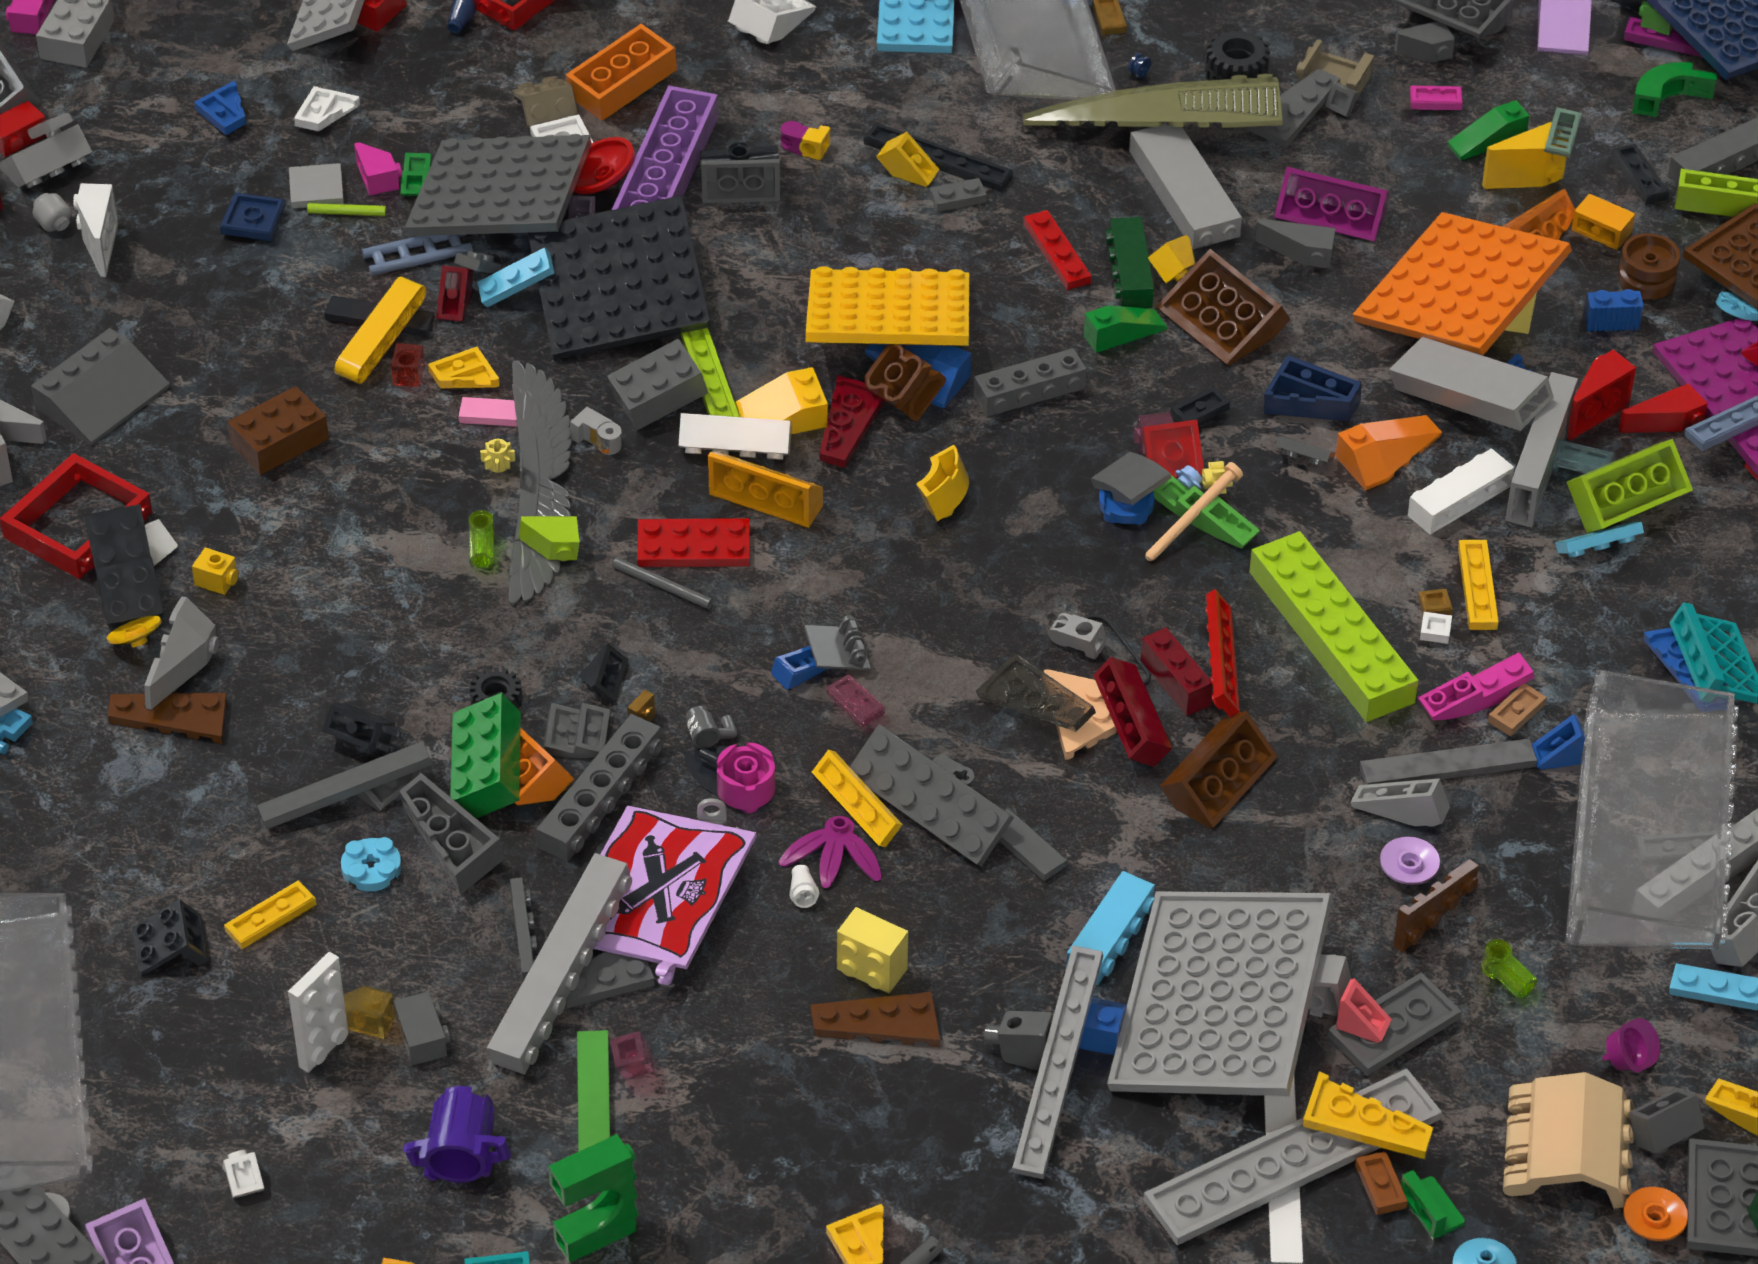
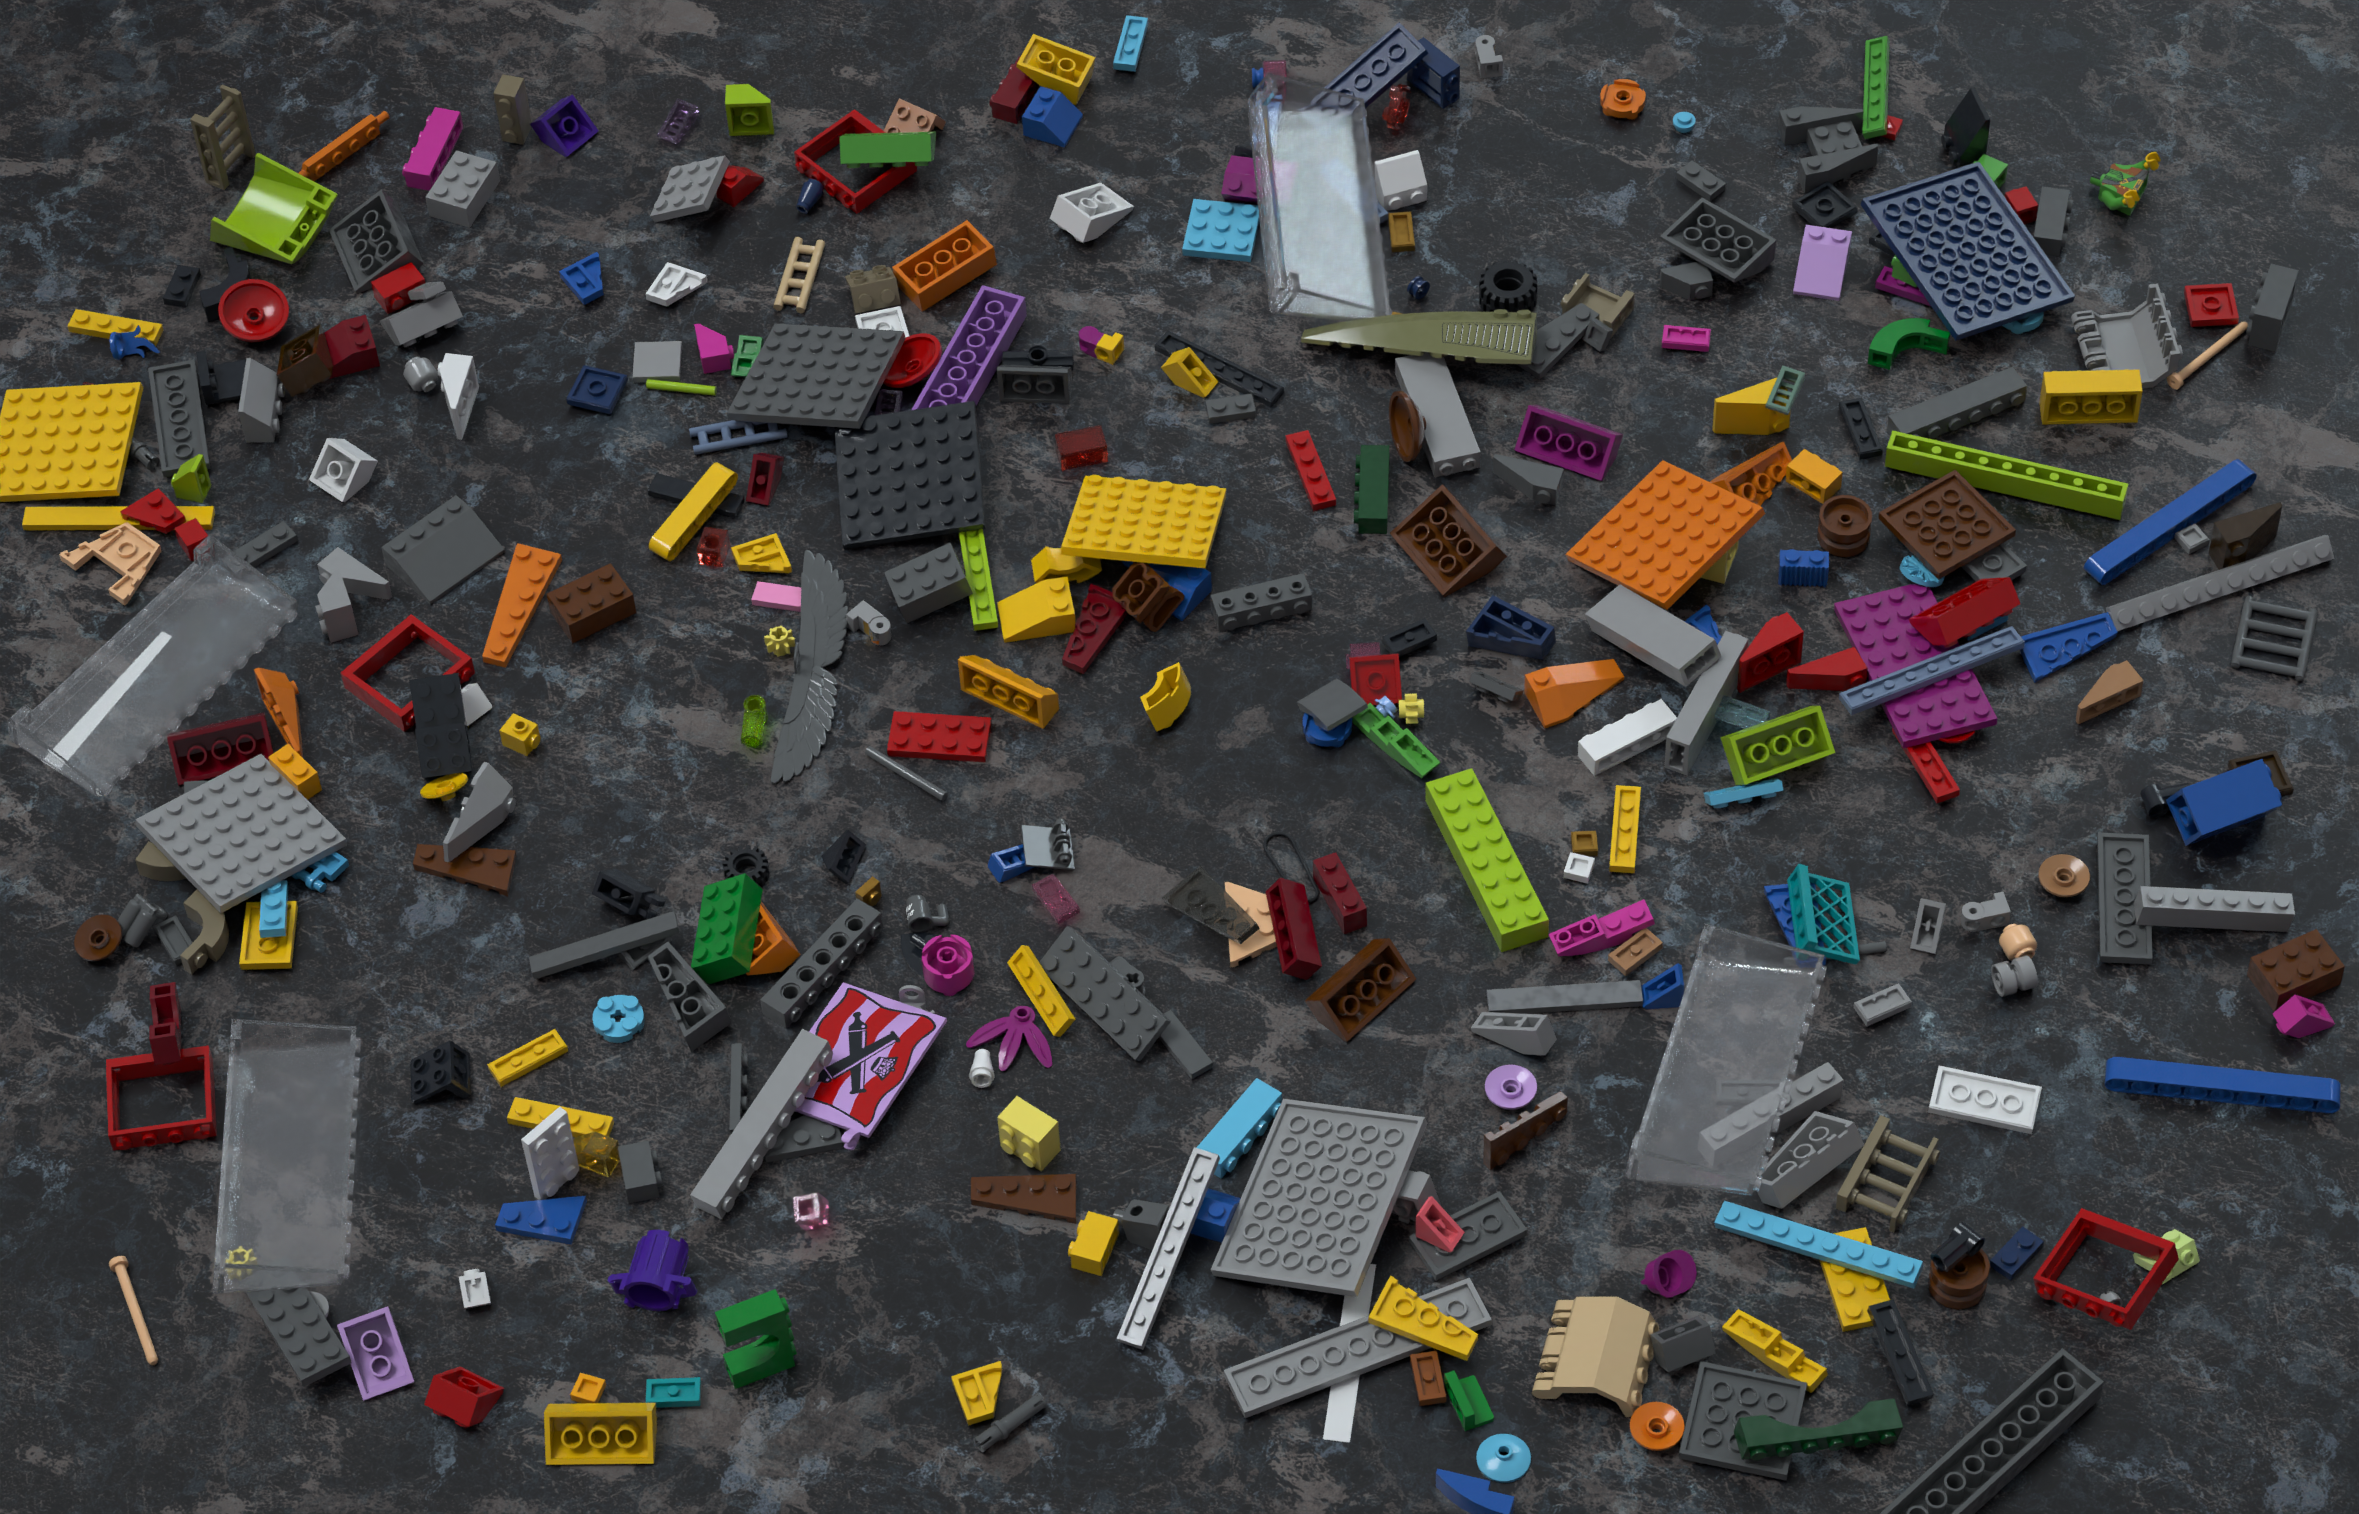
camera: 10 degrees right, 5 degrees up
(196, 426) = (522, 593): none -> orange wing
(284, 974) = (531, 1113): none -> yellow plate
(313, 1090) = (543, 1219): none -> blue wing
(469, 101) = (806, 285): none -> tan bar
(478, 262) = (788, 451): dark grey plate -> none
(515, 277) = (819, 468): medium azure plate -> none
(551, 536) = (814, 723): lime slope -> none
(576, 731) = (810, 908): dark grey slope -> none
(593, 1087) = (776, 1240): bright green tile -> none
(735, 435) = (989, 636): white brick -> none
(799, 354) = (1051, 565): none -> yellow brick
(802, 241) = (1081, 447): none -> clear red brick
(966, 1065) = (1094, 1243): none -> yellow brick
(1079, 634) = (1261, 851): light grey leg -> none
(1119, 325) = (1353, 551): green slope -> none
(1156, 195) = (1406, 425): none -> reddish brown dish
(1173, 259) = (1411, 489): yellow slope -> none
(1222, 654) = (1381, 880): red plate -> none
(1232, 472) = (1422, 707): light nougat bar -> none
(1493, 127) = (1729, 376): green slope -> none
(1502, 965) = (1577, 1194): clear neon green piece -> none

